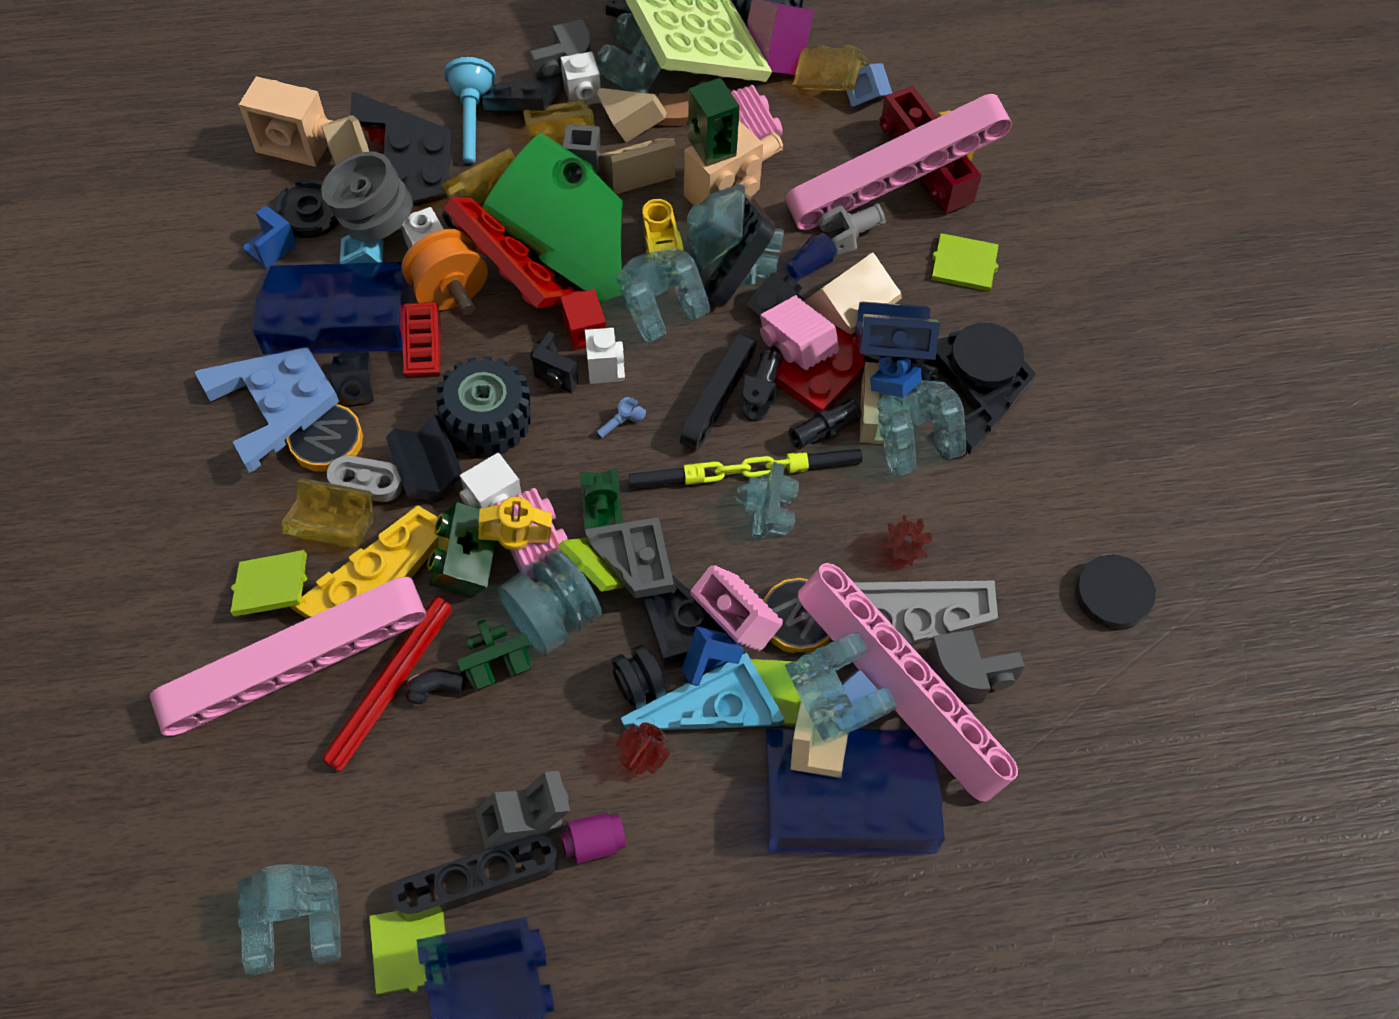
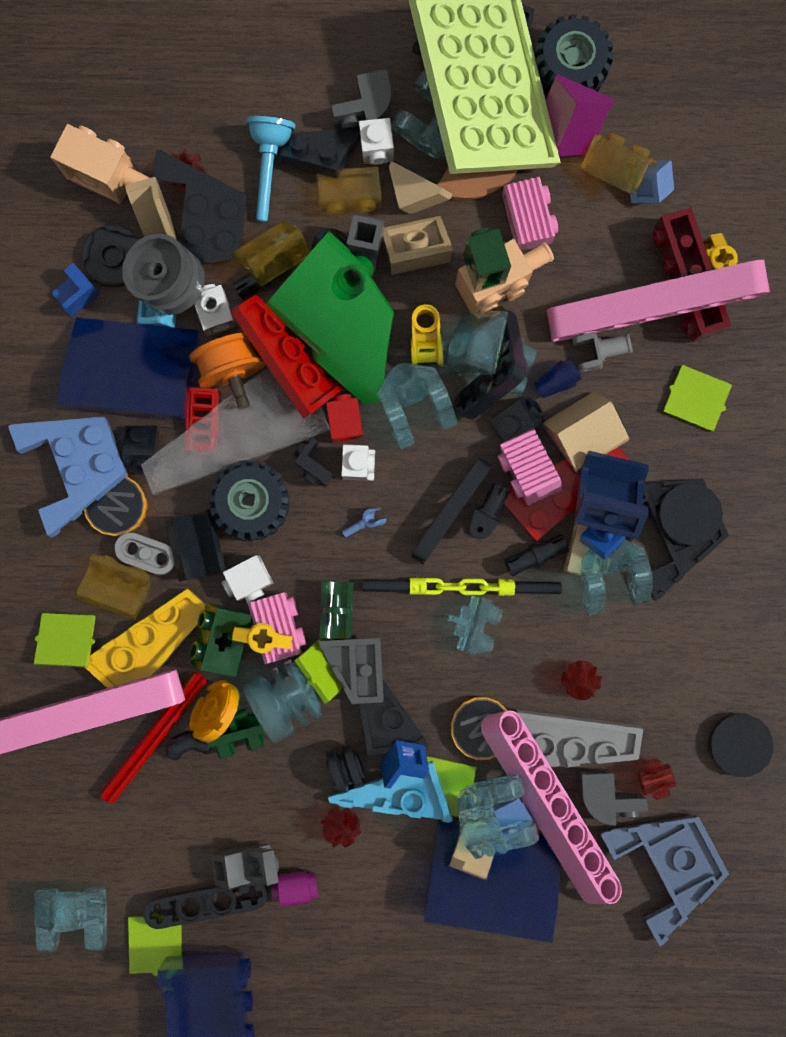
camera: 10 degrees right, 25 degrees up
(467, 625) = (214, 712): none -> light orange tile
(498, 327) = (233, 435): none -> clear wing
(736, 608) = (430, 725): bright pink brick -> none
(1025, 636) = (656, 779): none -> clear red gear
(1083, 729) = (683, 861): none -> sand blue wing

